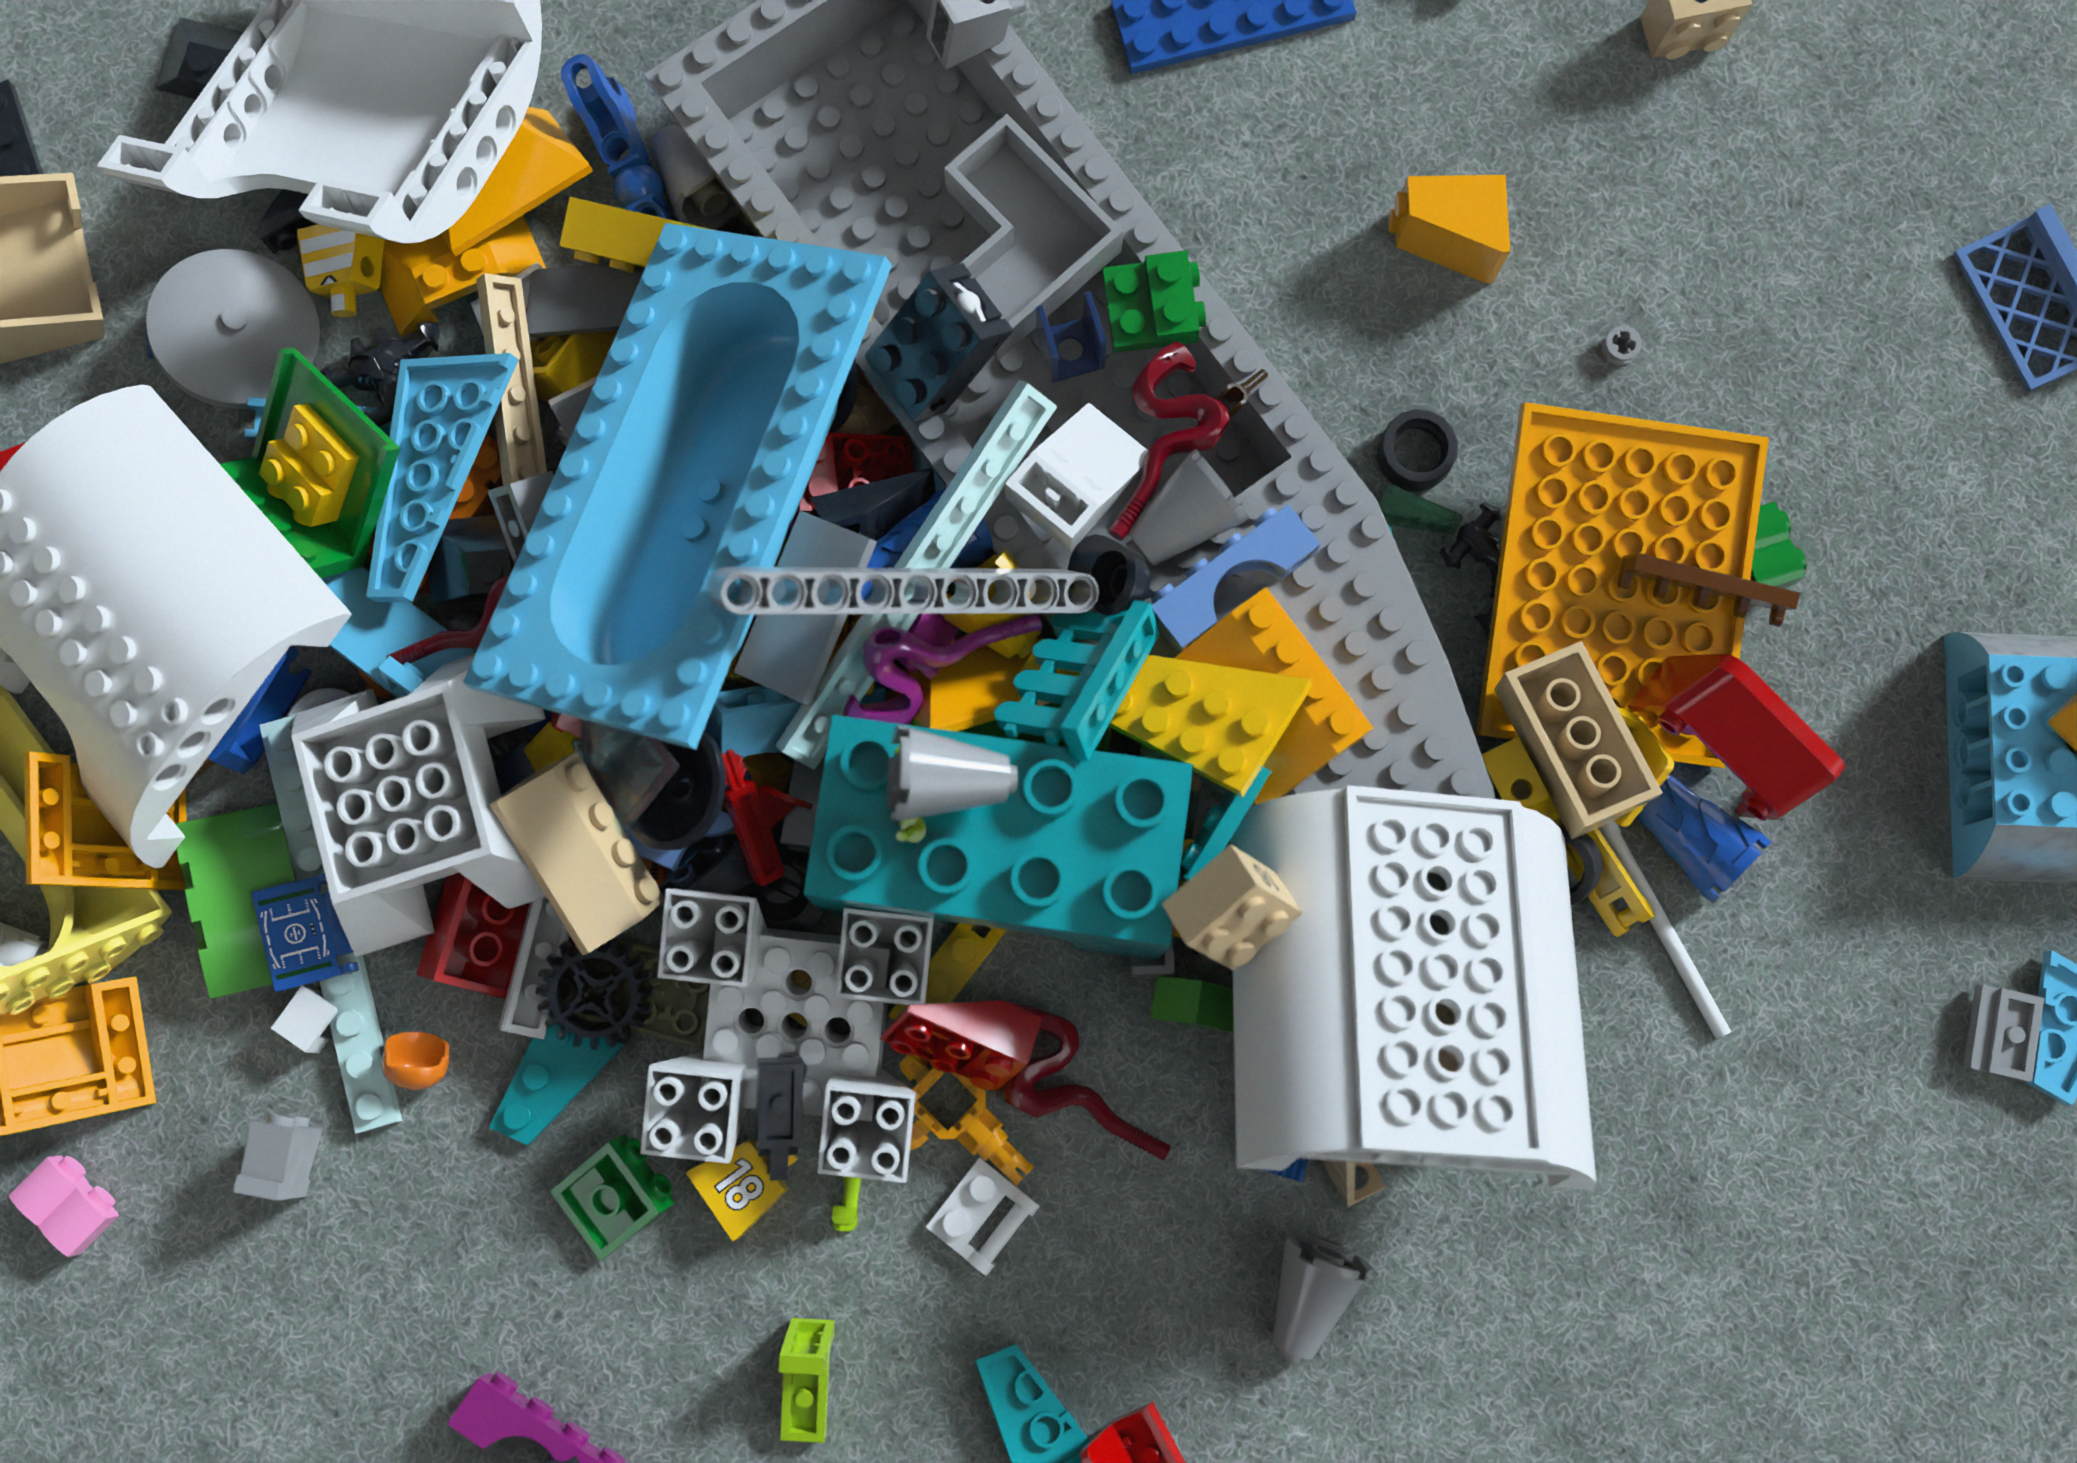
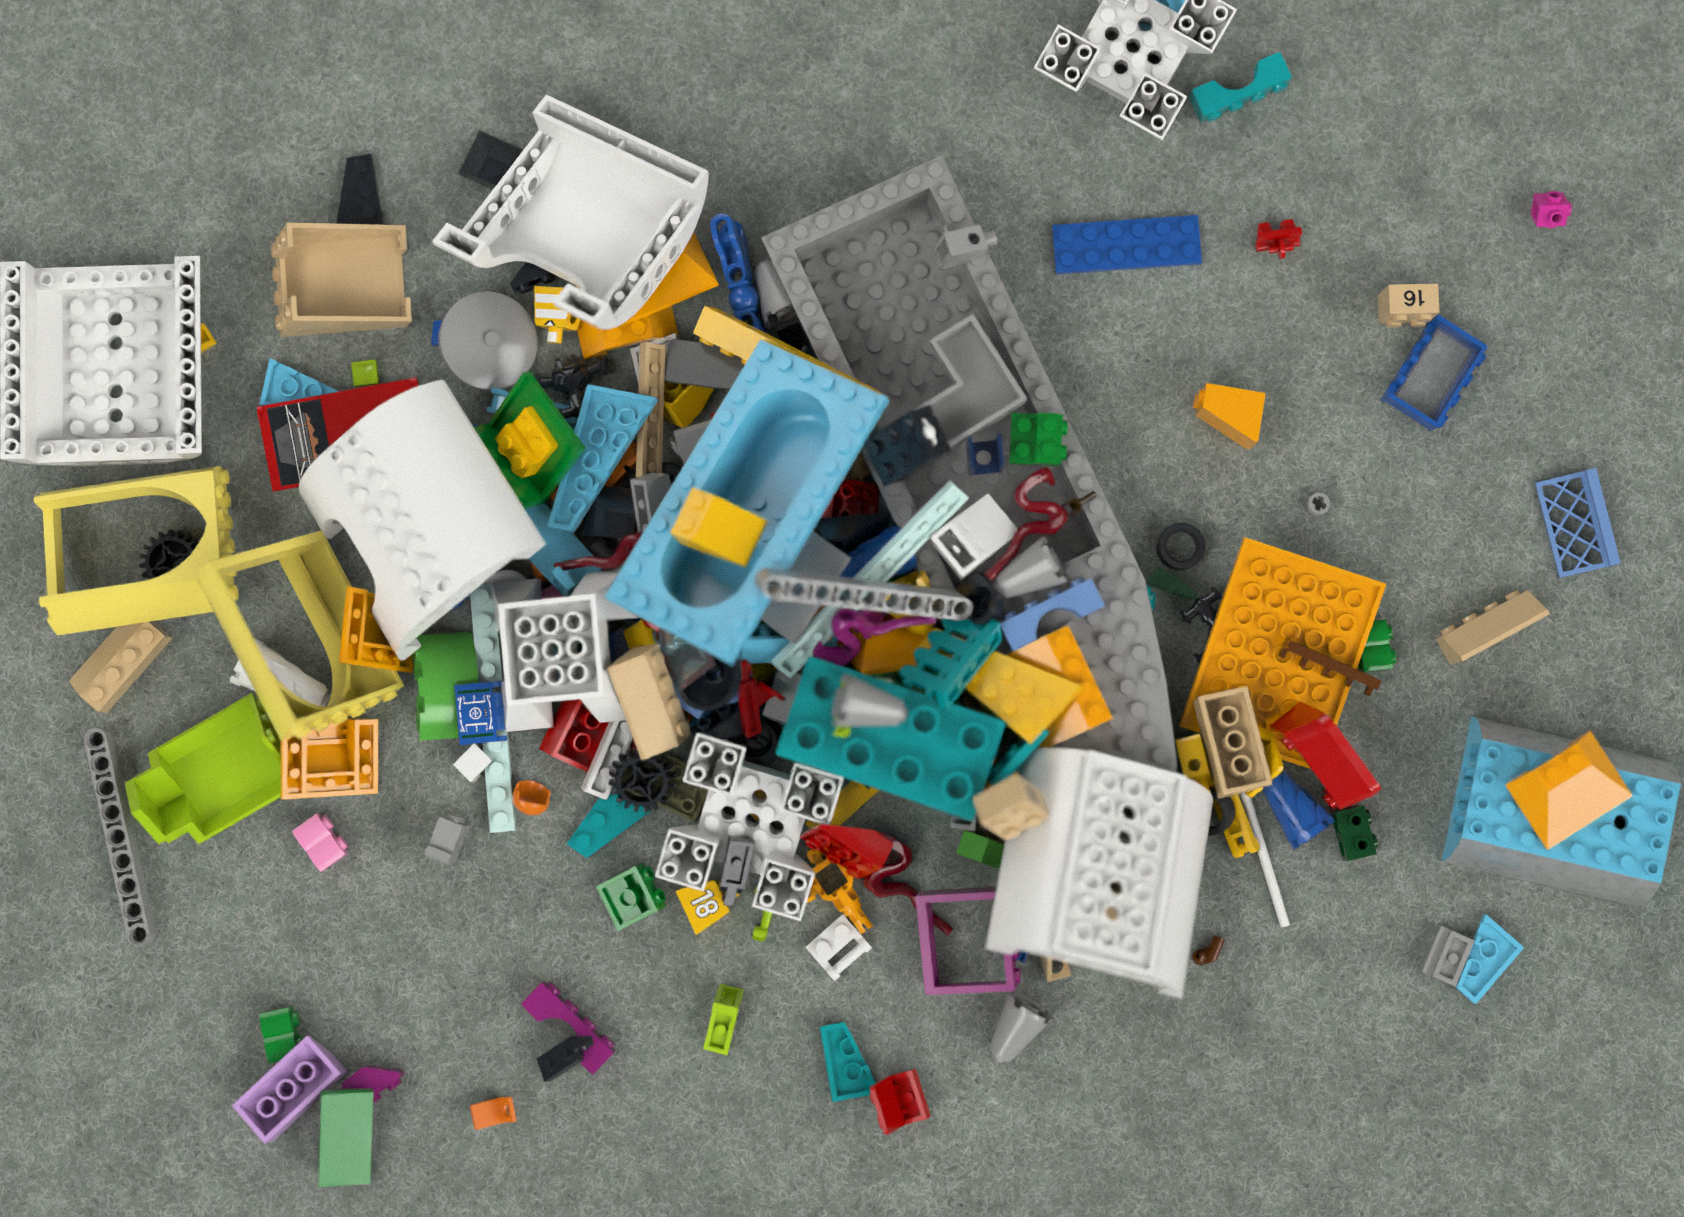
camera: 10 degrees right, 5 degrees up
(39, 413) = (365, 373): none -> lime tile
(636, 526) = (718, 528): none -> yellow slope
(1135, 1190) = (928, 946): none -> magenta window
(1611, 1104) = (1208, 954): none -> reddish brown arm
(1759, 110) = (1435, 373): none -> window
(1804, 858) = (1354, 833): none -> dark green brick
(1946, 481) = (1491, 626): none -> tan slope

